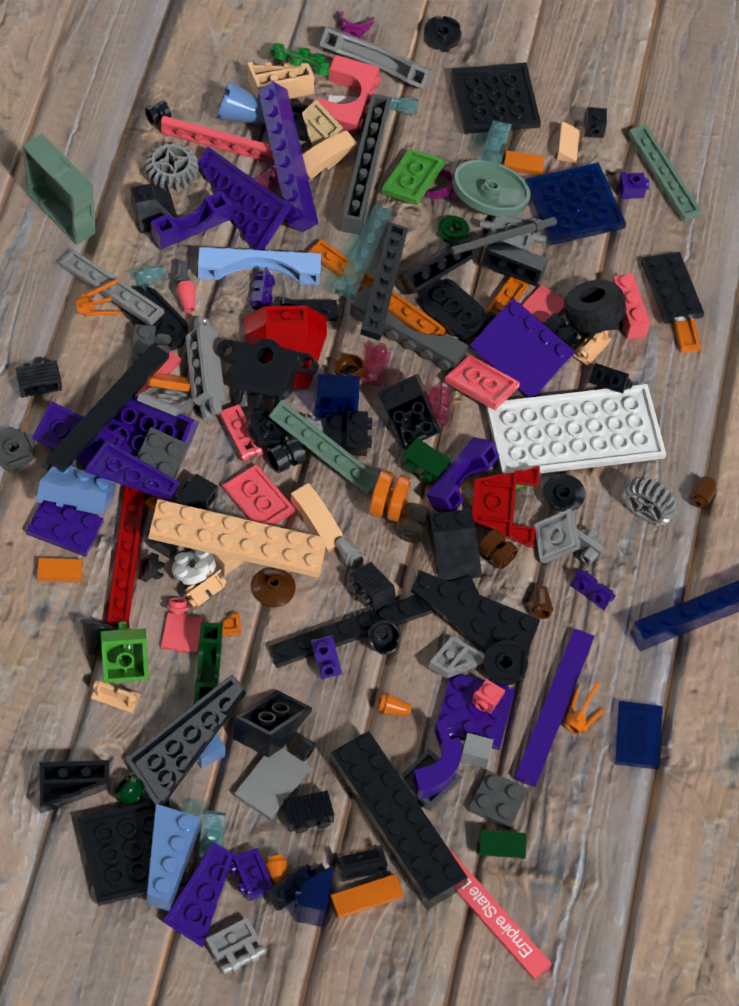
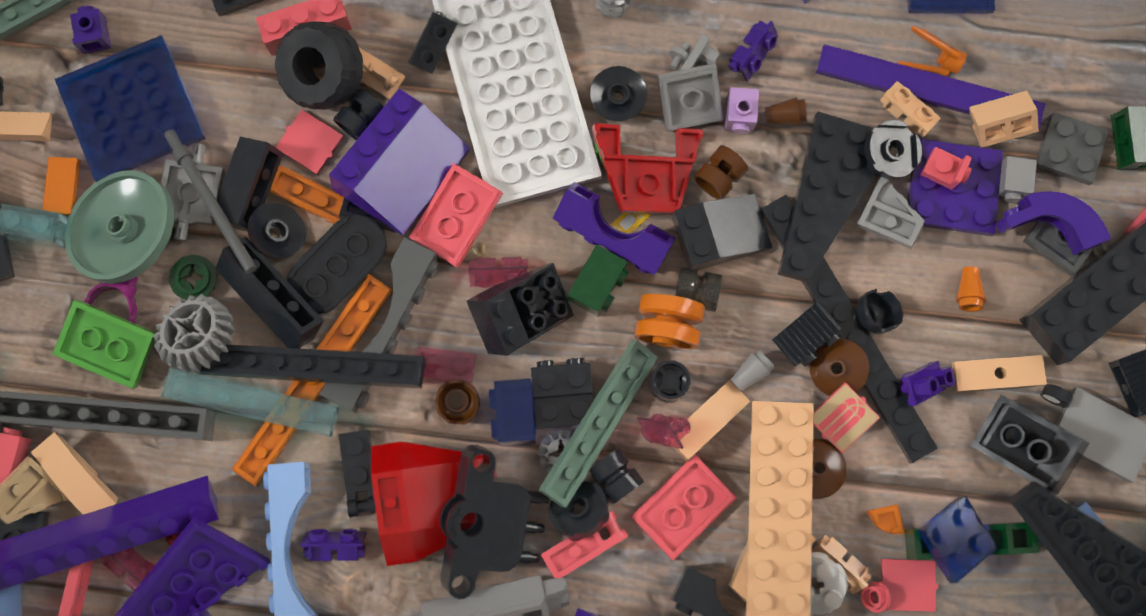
camera: 90 degrees left, 20 degrees up
(211, 649) = (957, 539): none -> clear blue plate
(308, 605) = (843, 417): none -> piece
(314, 483) = (664, 430): none -> clear pink hinge
(328, 703) = (1014, 372): none -> light nougat tile
(344, 608) = (854, 364): none -> reddish brown dish
(347, 495) = (669, 381): none -> black wheel
(414, 222) = (194, 333): none -> light grey gear
(489, 272) = (284, 222): none -> black dish
(523, 745) = (1004, 119): none -> light nougat hinge
(538, 684) = (919, 116): none -> light nougat hinge
(545, 571) = (741, 110): none -> lavender brick

